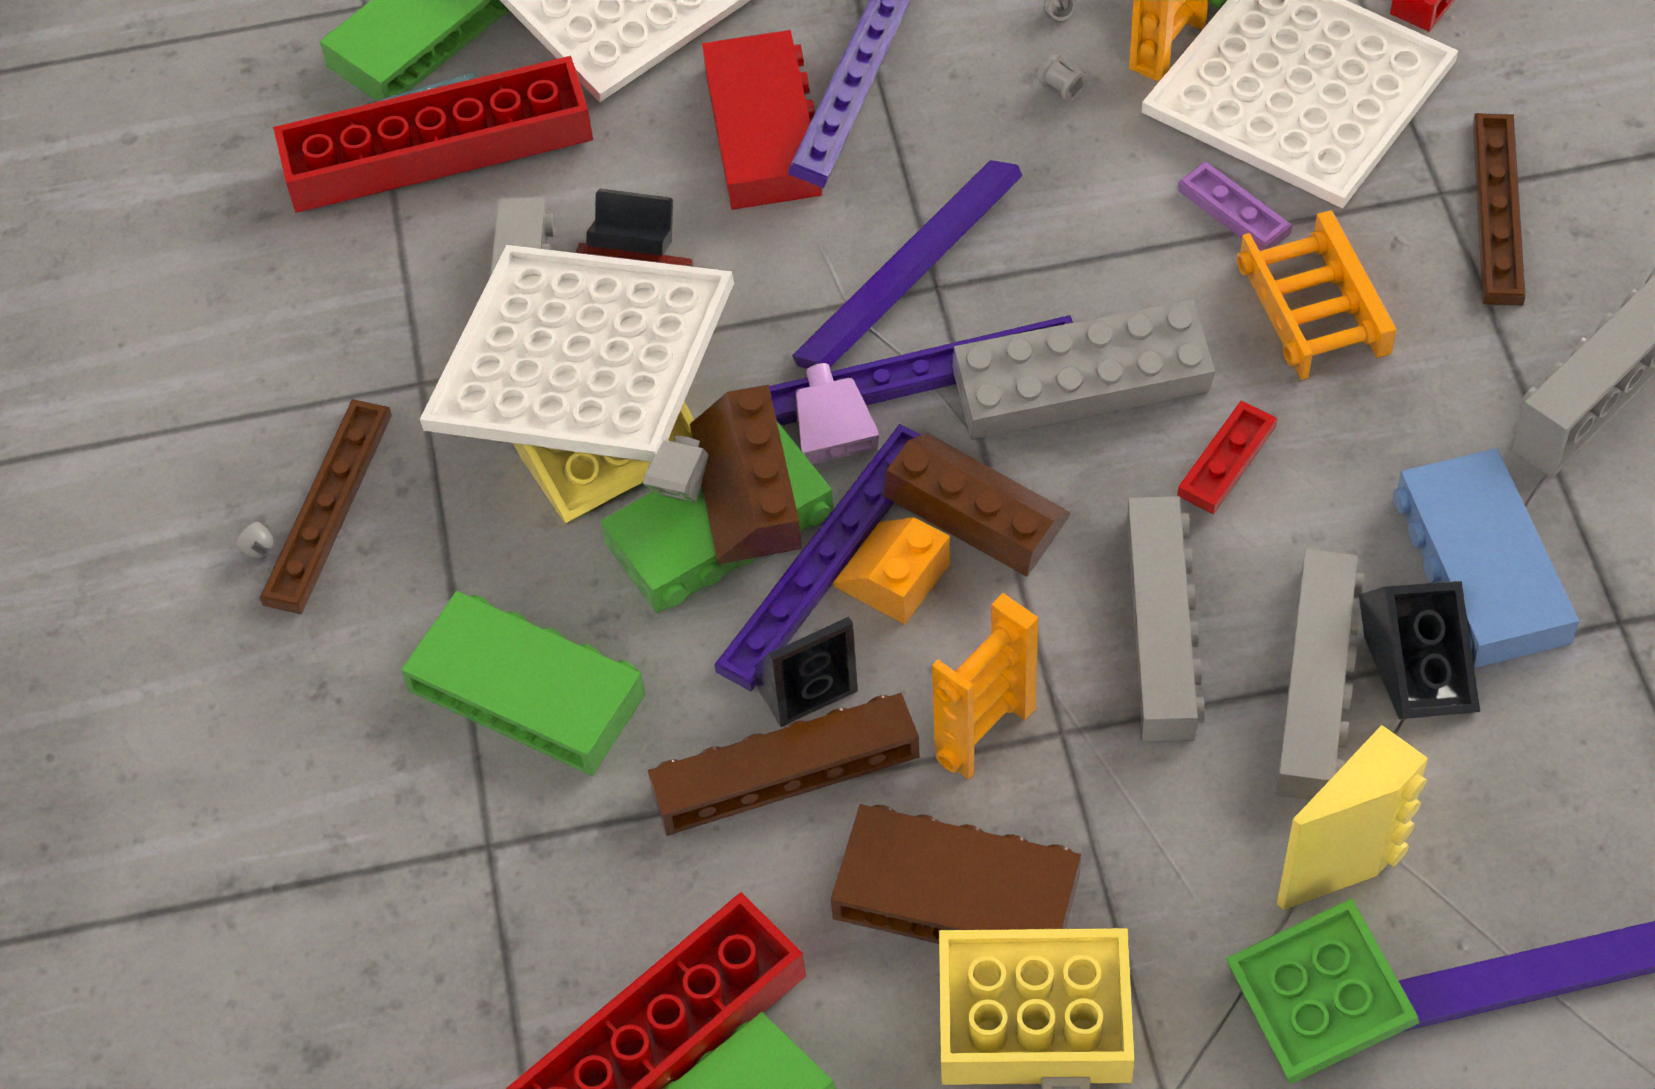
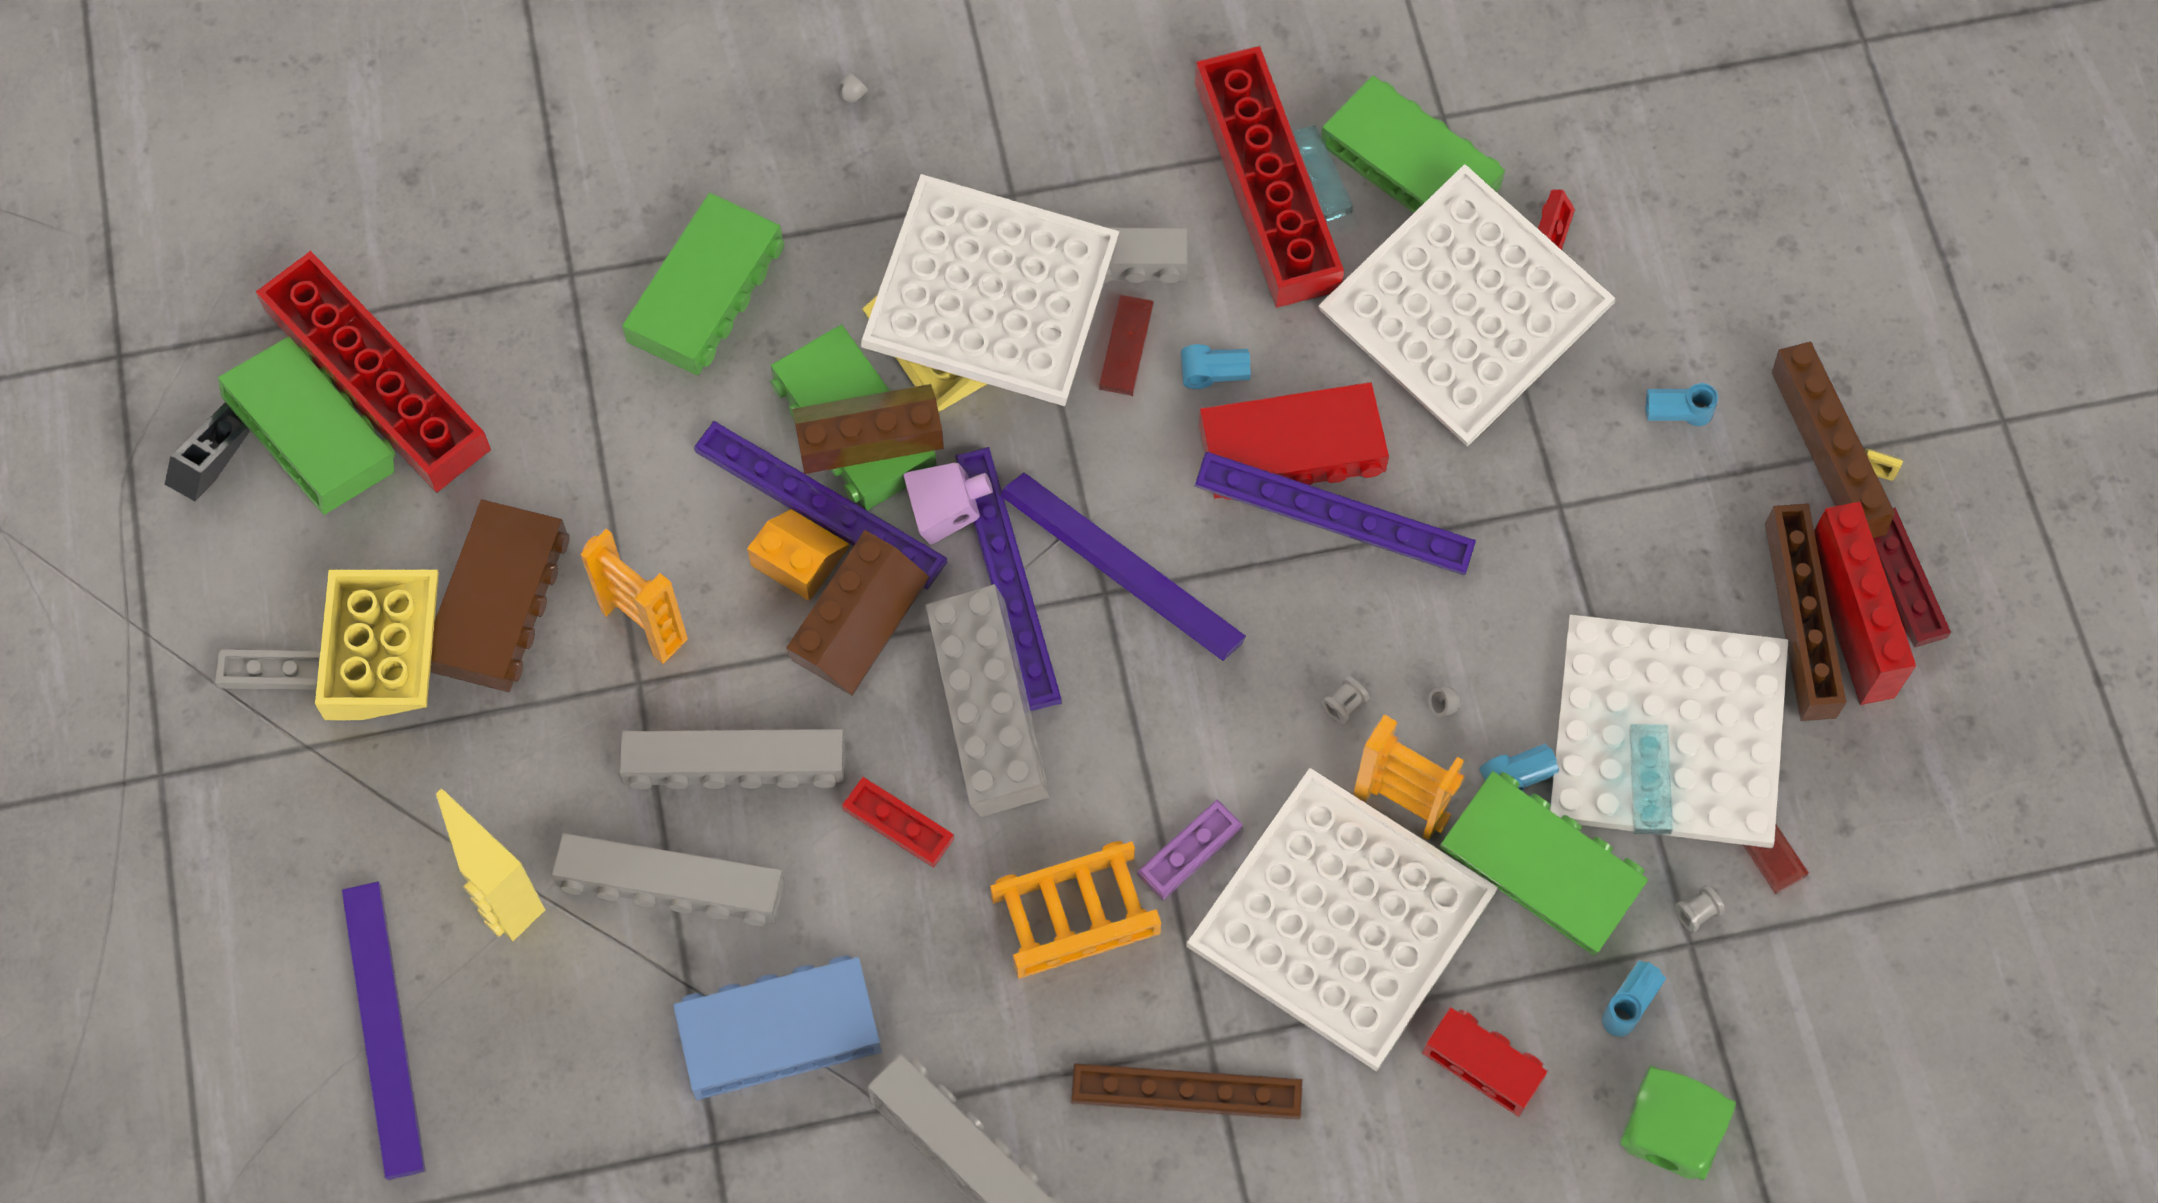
camera: 85 degrees right, 10 degrees up
(325, 507) = (889, 136): reddish brown tile -> none
(631, 222) = (1164, 338): black panel -> none
(667, 178) = (1204, 366): none -> dark azure piece
(677, 469) = (858, 364): light grey slope -> none
(784, 763) = (615, 472): reddish brown brick -> none
(809, 672) = (689, 477): black slope -> none
(1322, 991) = (374, 855): bright green plate -> none
(1422, 648) = (680, 960): black slope -> none

